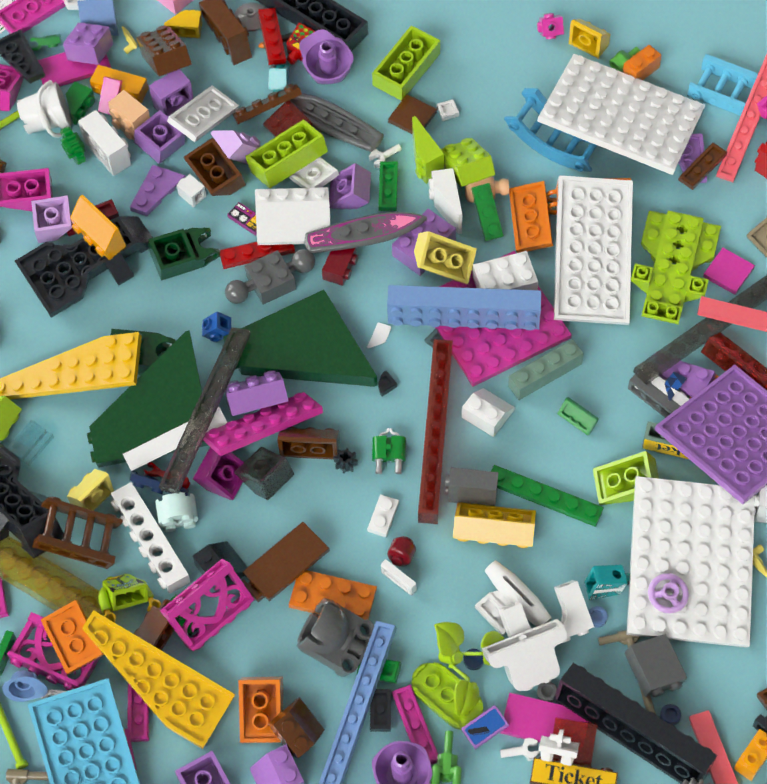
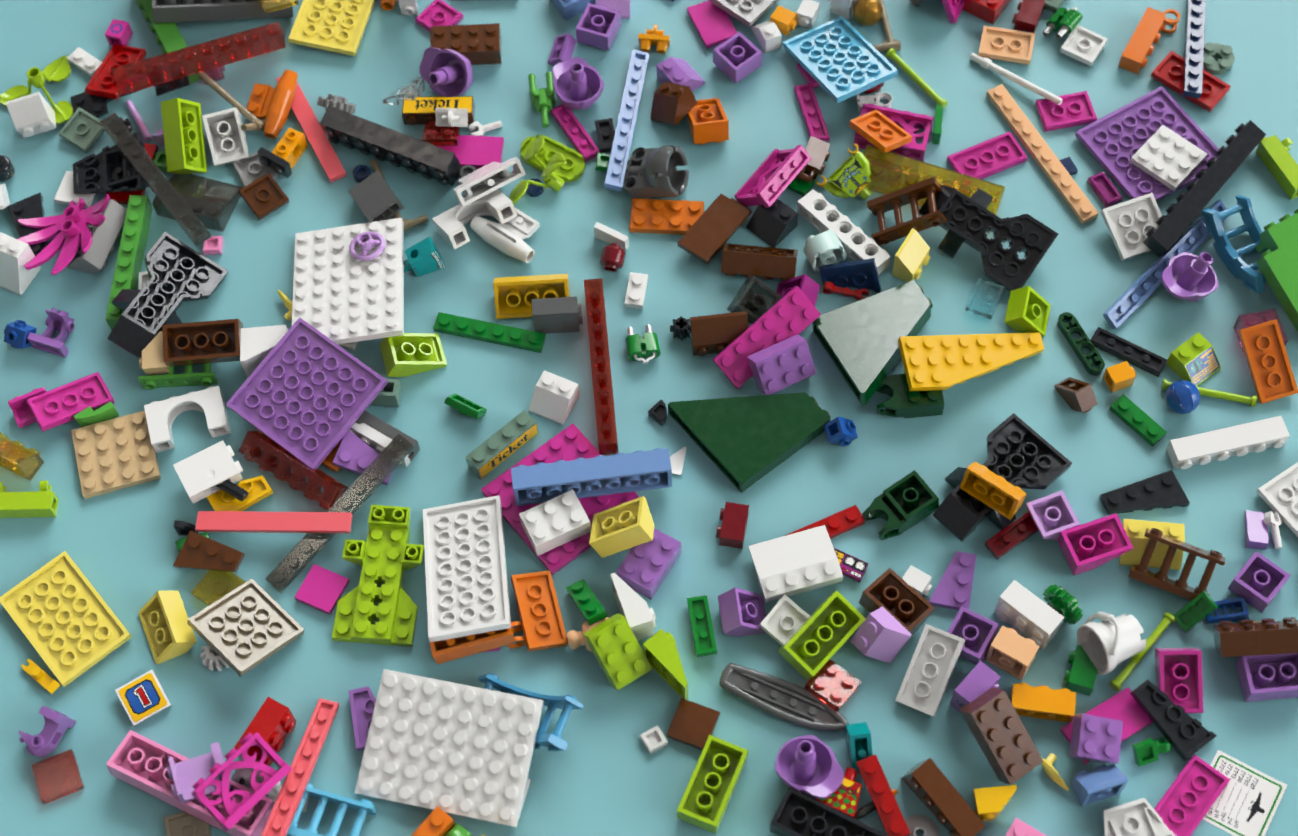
camera: 170 degrees right, 0 degrees up
(24, 687) = (908, 99): medium blue piece -> none
(110, 88) = (1045, 679): tile -> none
(164, 443) = (845, 311): white sticker -> none
(173, 691) = (781, 113): yellow wing -> none
(204, 411) = (823, 332): clear smoke plate -> none
(245, 521) = (759, 261): none -> reddish brown slope
(260, 106) = (862, 701): reddish brown plate -> none
(270, 277) = (801, 495): dark grey brick -> none
(362, 231) = (714, 549): dark grey piece -> none
(383, 155) = (716, 666): white bar -> none
(485, 727) = (516, 136): slope -> none
(598, 616) = (433, 234): medium blue tile -> none
(673, 384) = (372, 443): dark blue sticker -> none
(702, 166) = (353, 701): reddish brown tile -> none

